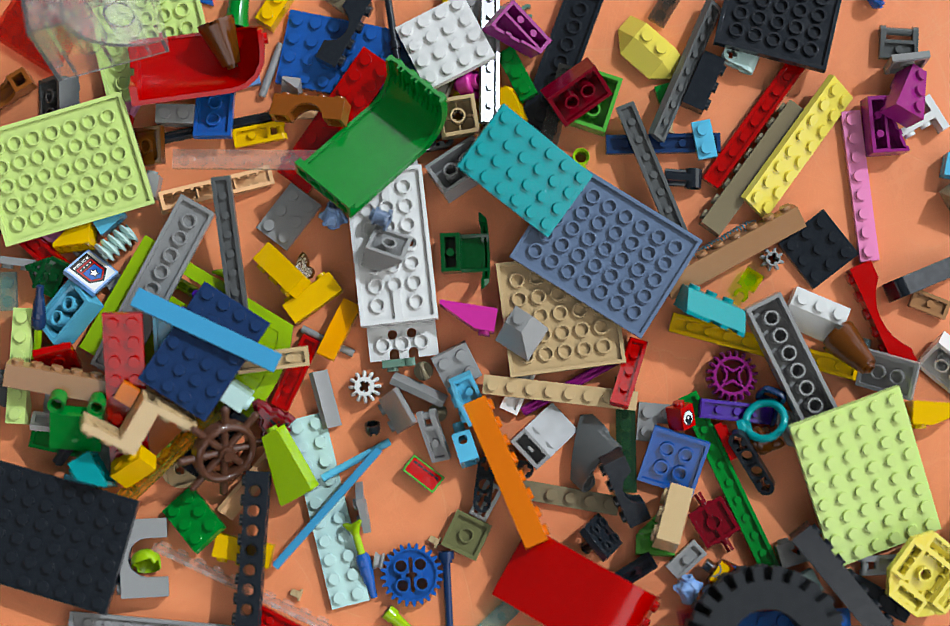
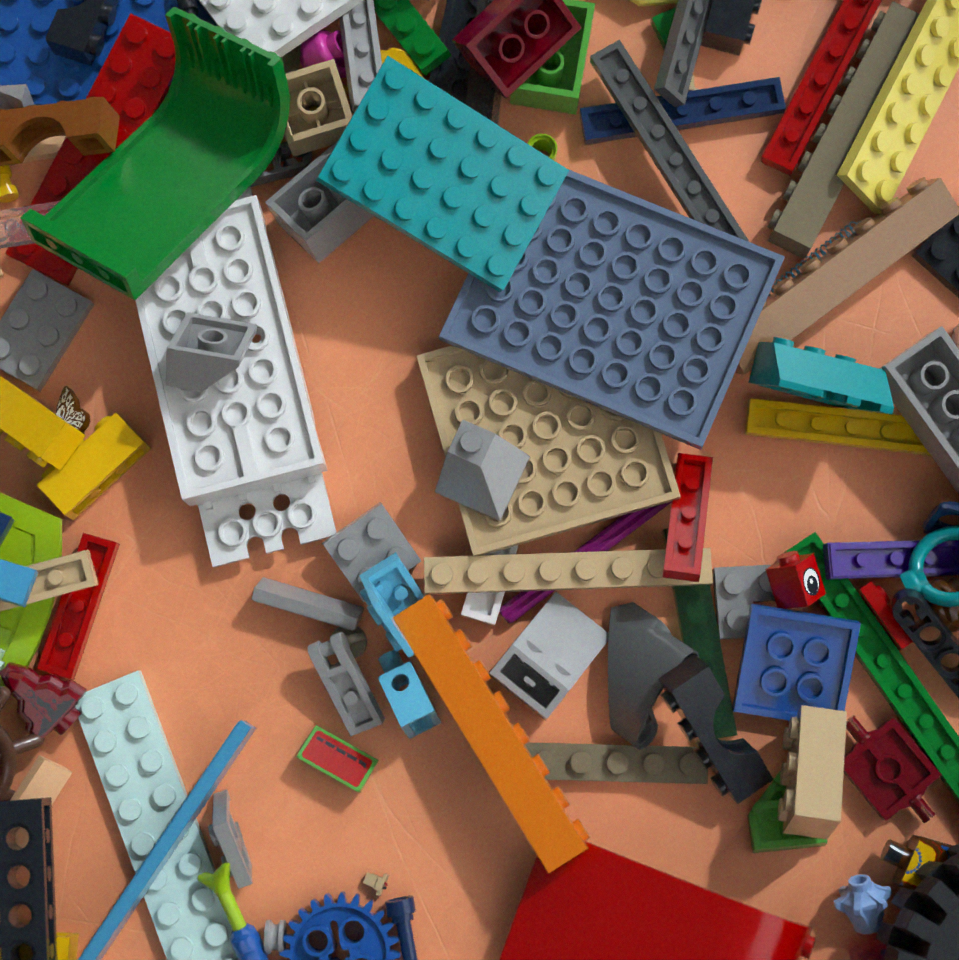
camera: 10 degrees left, 5 degrees down
(287, 465) = (77, 779): lime slope -> none
(318, 336) = (131, 540): light grey bar -> none
(325, 399) = (138, 647): light grey tile -> none
(332, 216) = (113, 314): light blue rock -> none
(338, 330) = (146, 517): light orange slope -> none
(353, 461) = (201, 755): medium azure bar -> none
(358, 384) = (196, 613): white gear -> none
(372, 427) = (232, 686): black hinge -> none
(381, 217) = (194, 295): sand blue brick -> none
(394, 364) = (256, 565): sand green plate -> none
(397, 410) = (272, 646): light grey slope -> none
(423, 370) = (313, 569): dark tan tile -> none
(466, 535) = (433, 862): olive plate -> none
(467, 252) = (362, 344): dark green piece -> none
(477, 317) = (396, 455): dark pink slope -> none
(478, 515) = (450, 821): white tile -> none
(482, 474) = (458, 743): black beam -> none
(599, 538) = (682, 831): black plate -> none
(638, 568) = (762, 877): black plate -> none
(686, 559) = (849, 847): light grey plate -> none
(688, 178) = (736, 162): black piece -> none
(704, 139) = (753, 91): medium azure plate -> none
(737, 382) = (885, 505): magenta gear -> none
(749, 282) = (875, 327): clear neon green plate -> none
(766, 261) = (916, 276): light grey gear -> none

